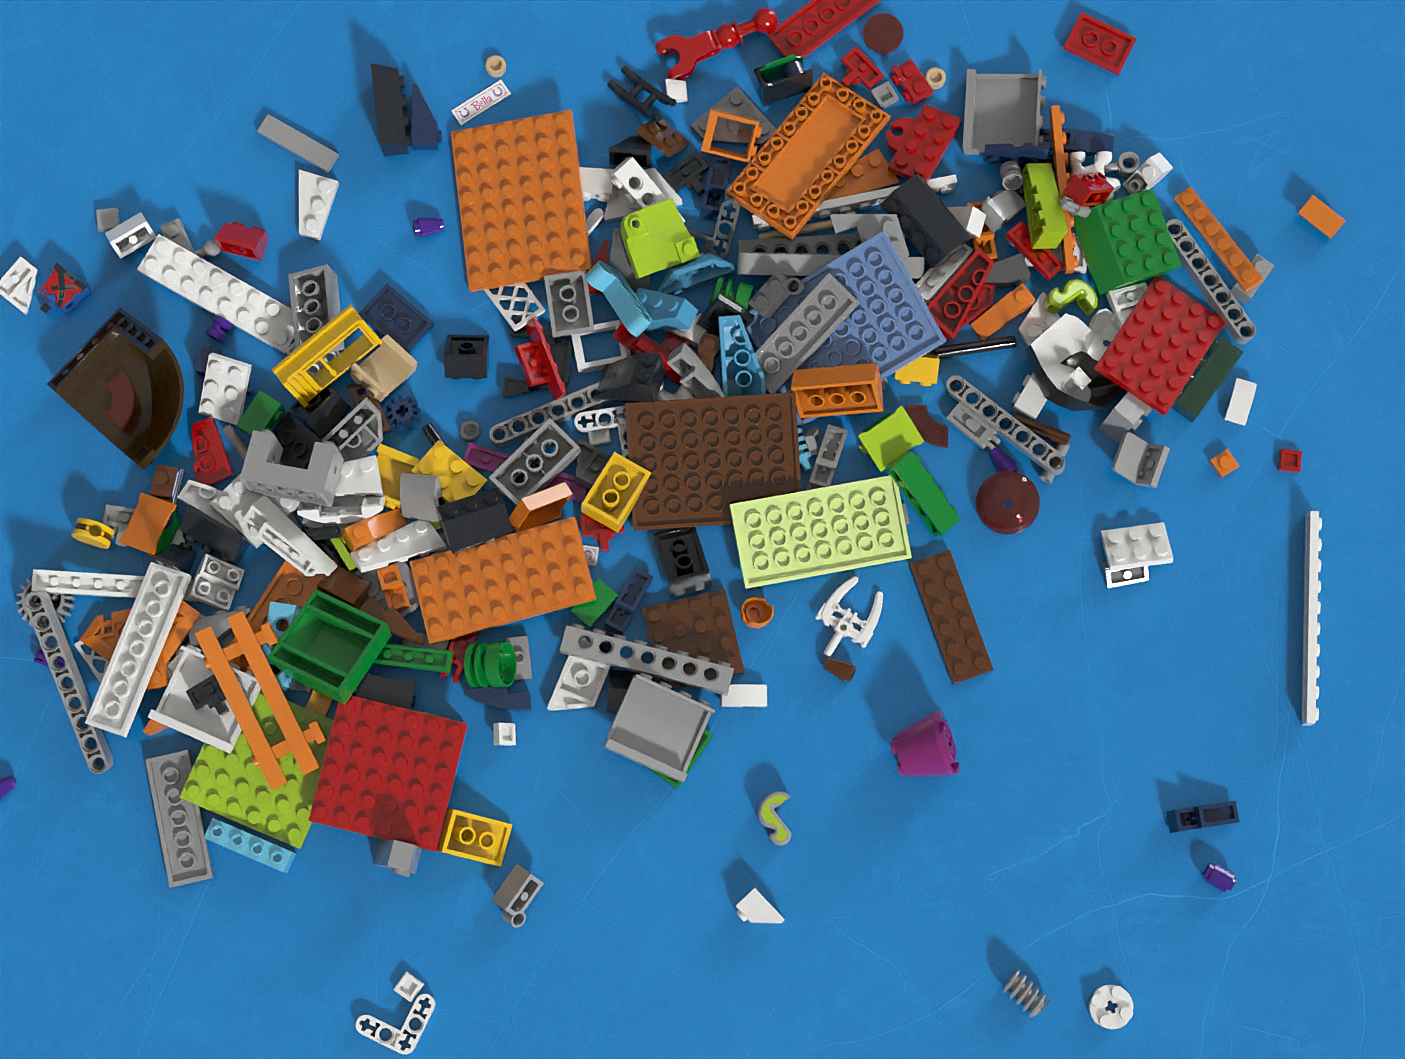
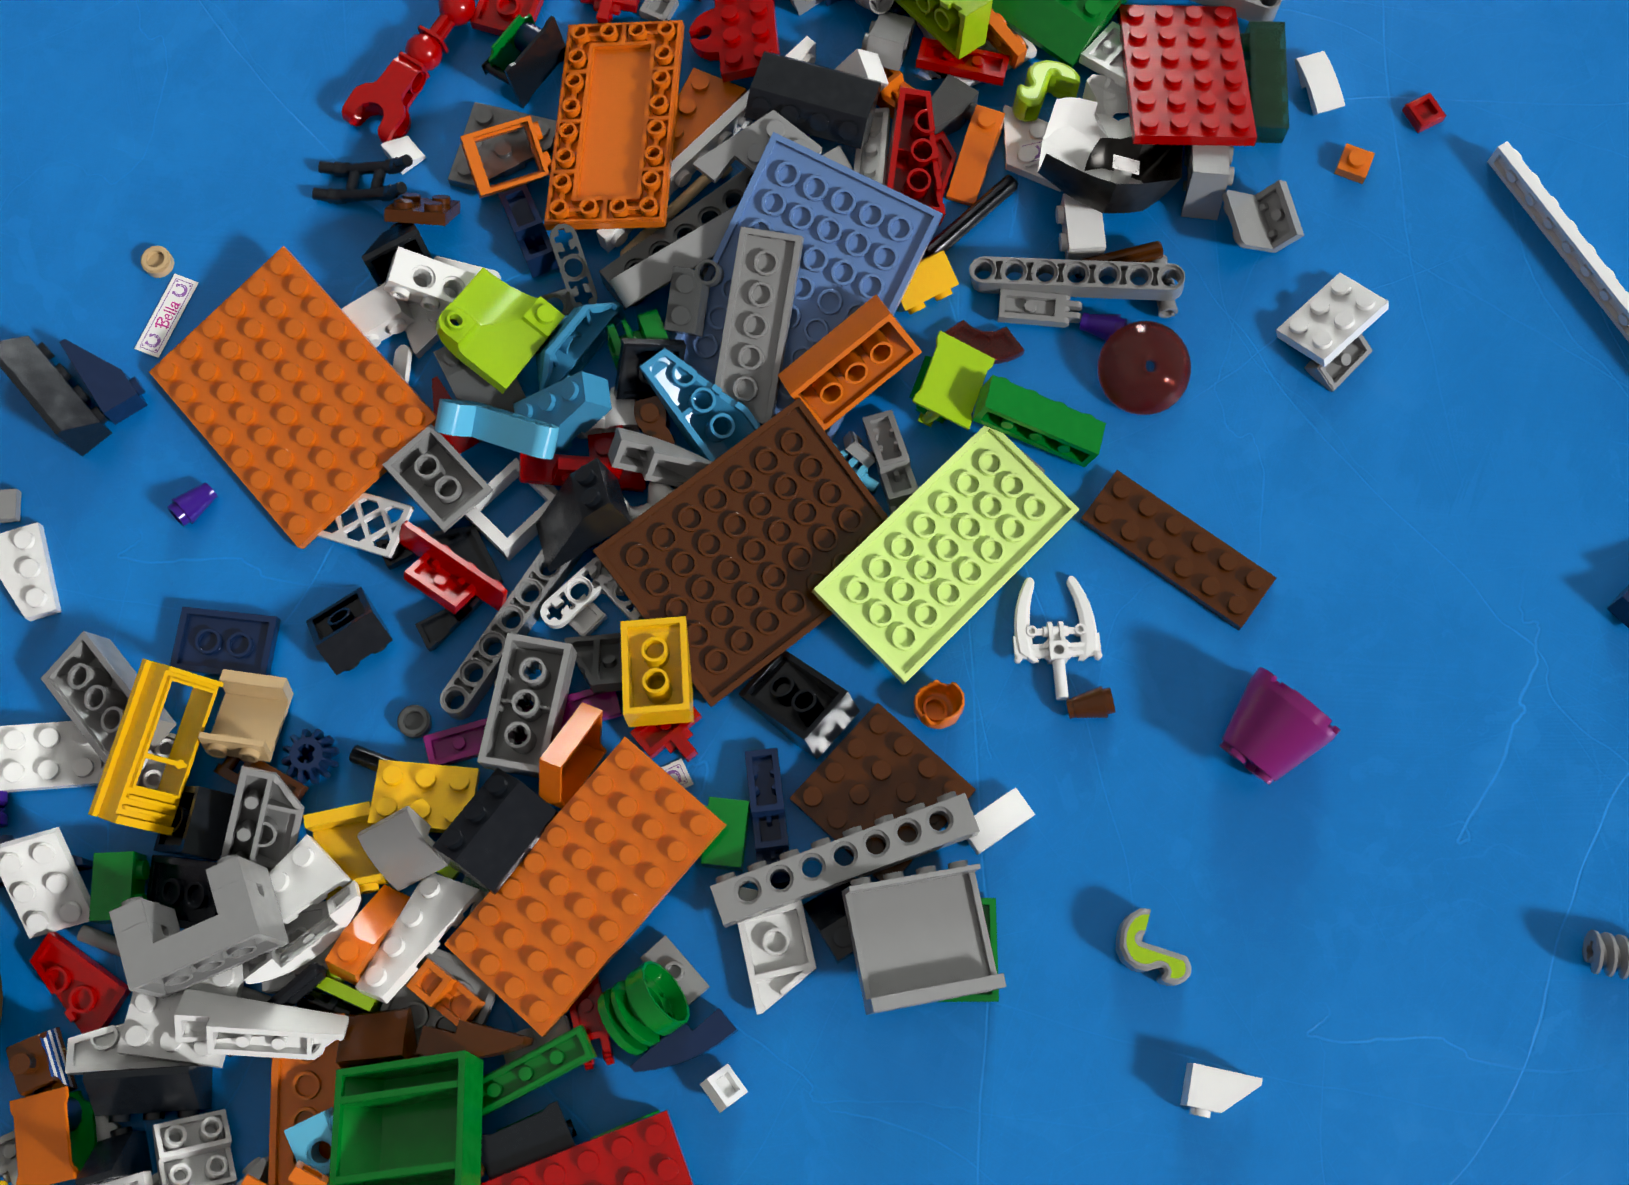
camera: 30 degrees left, 5 degrees down
(687, 174) = (484, 237): black hinge -> none

